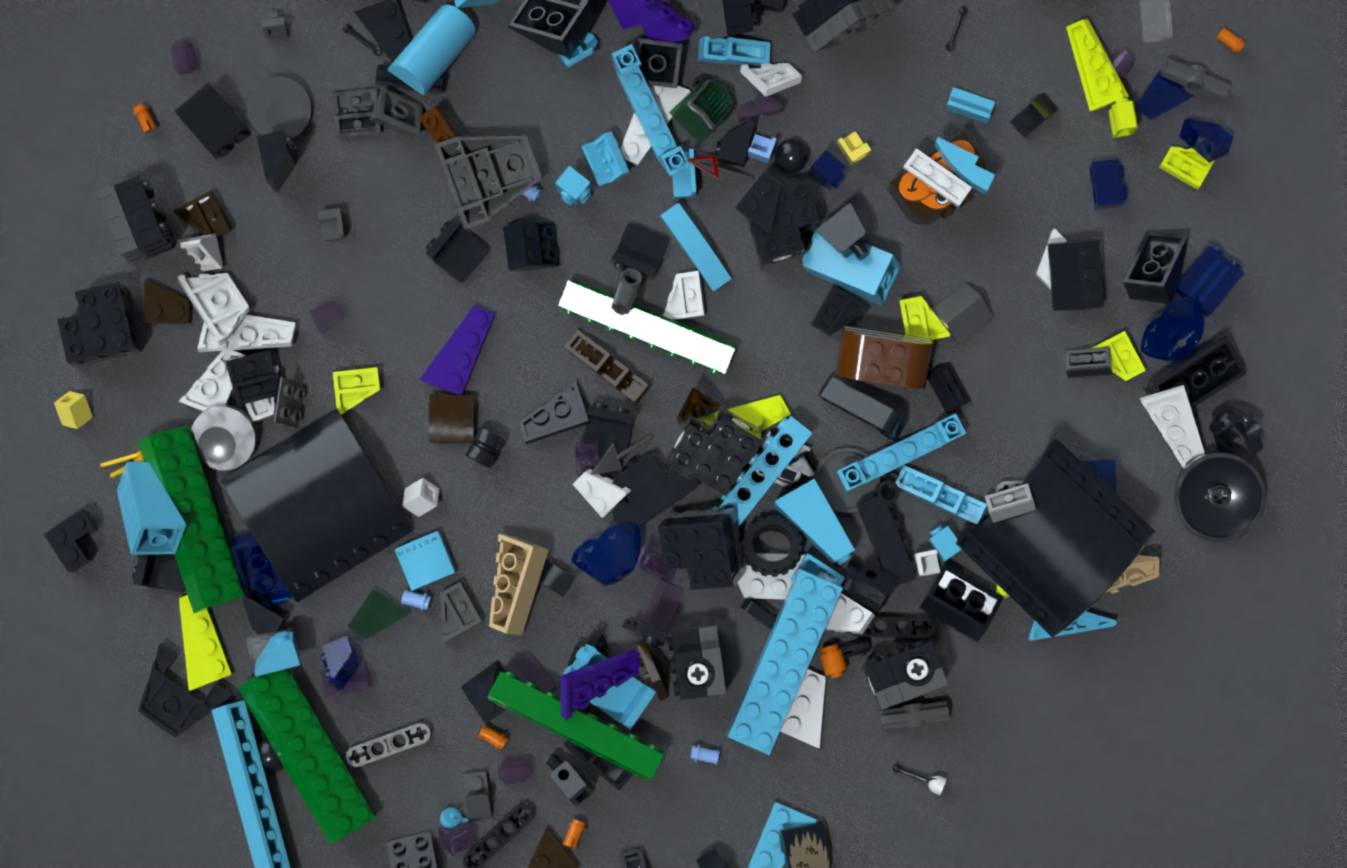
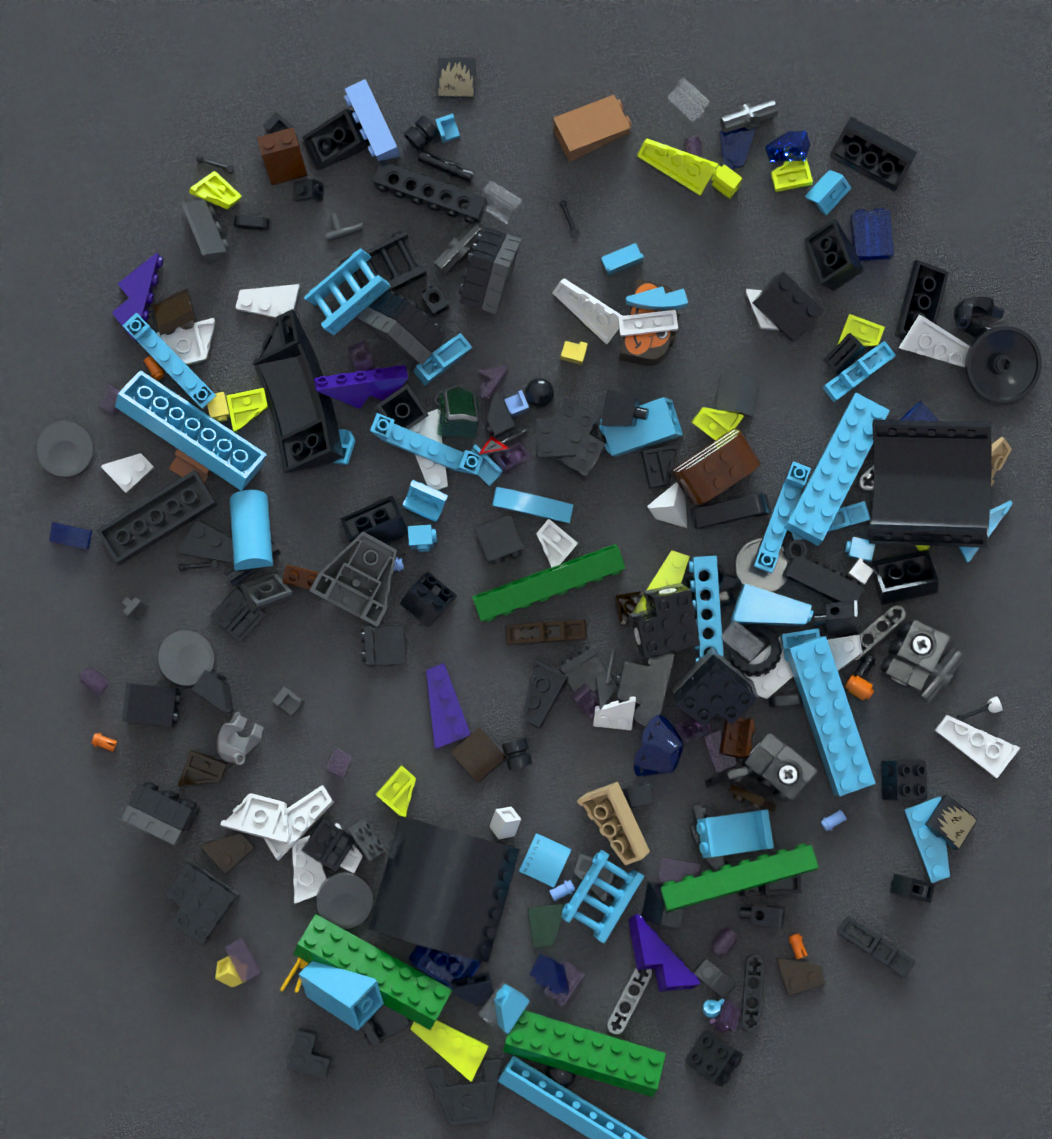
camera: 40 degrees left, 0 degrees up
(92, 408) = (243, 959): none -> clear purple panel
(204, 250) = (221, 792): white slope -> none
(248, 217) = (231, 746): none -> light grey piece
(440, 657) = (621, 896): none -> medium azure fence
(444, 726) = (654, 954): none -> dark purple slope
(493, 737) = (691, 932): orange pin -> none
(551, 141) = (378, 520): none -> black slope
(595, 680) = (725, 837): dark purple wing -> none
(626, 291) = (517, 573): dark grey piece -> none
(687, 607) = (737, 738): none -> reddish brown bracket
(712, 189) = (509, 459): none -> clear purple slope
(766, 526) = (742, 641): none -> clear panel
(772, 77) = (482, 354): white wing -> none
(798, 776) = (904, 780): none -> black bracket
(806, 711) = (872, 734): white wing -> none
(814, 357) = (670, 506): none -> white slope
(828, 171) = (573, 380): clear blue brick -> none
(892, 812) = (984, 749): none -> white wing
(899, 122) = (589, 310): none -> white wing
(948, 387) = (772, 449): black slope -> none
(985, 454) = (836, 470): none -> medium azure brick
(1010, 503) = (878, 486): light grey slope -> none
(1034, 115) = (667, 229): black slope -> none
(1087, 389) = (859, 371): none -> medium azure slope
(1107, 184) = (753, 231): clear blue brick -> none
(1174, 327) = (877, 285): clear blue piece -> none
(1206, 209) = (828, 191): none -> medium azure panel
(1231, 40) = (747, 72): orange pin -> none
(1276, 210) = (873, 153): none -> black slope

